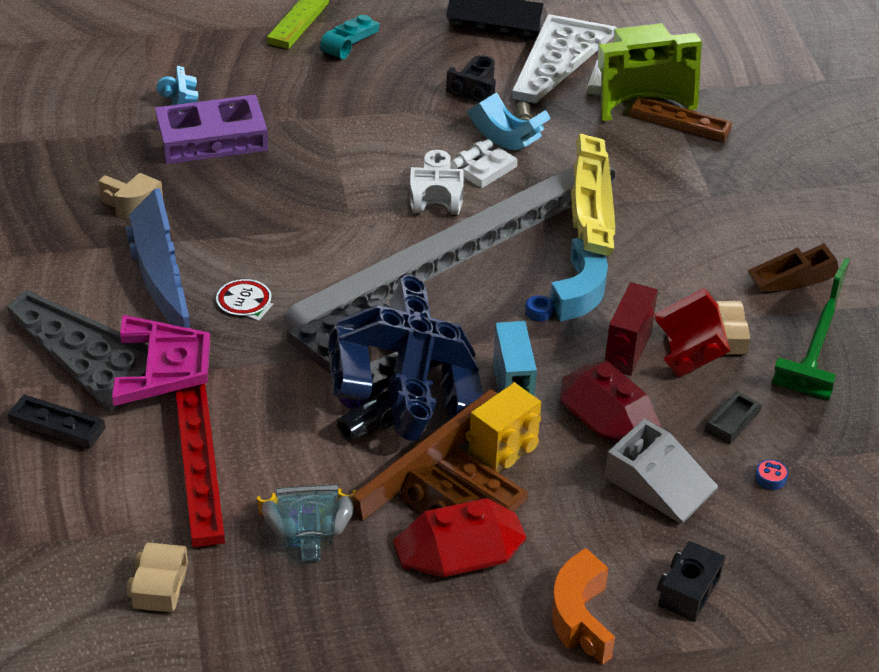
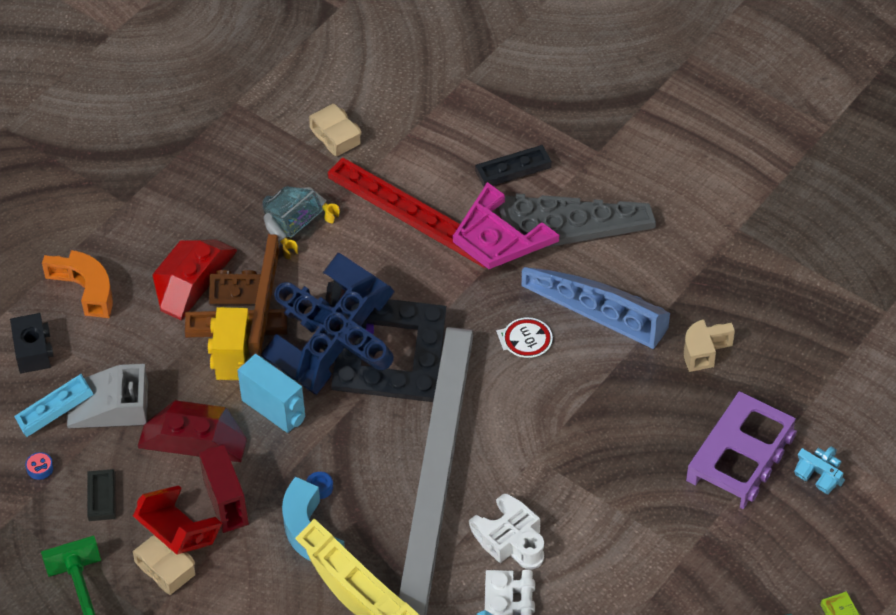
camera: 140 degrees right, 10 degrees up
(718, 502) = (53, 405): none -> medium azure tile

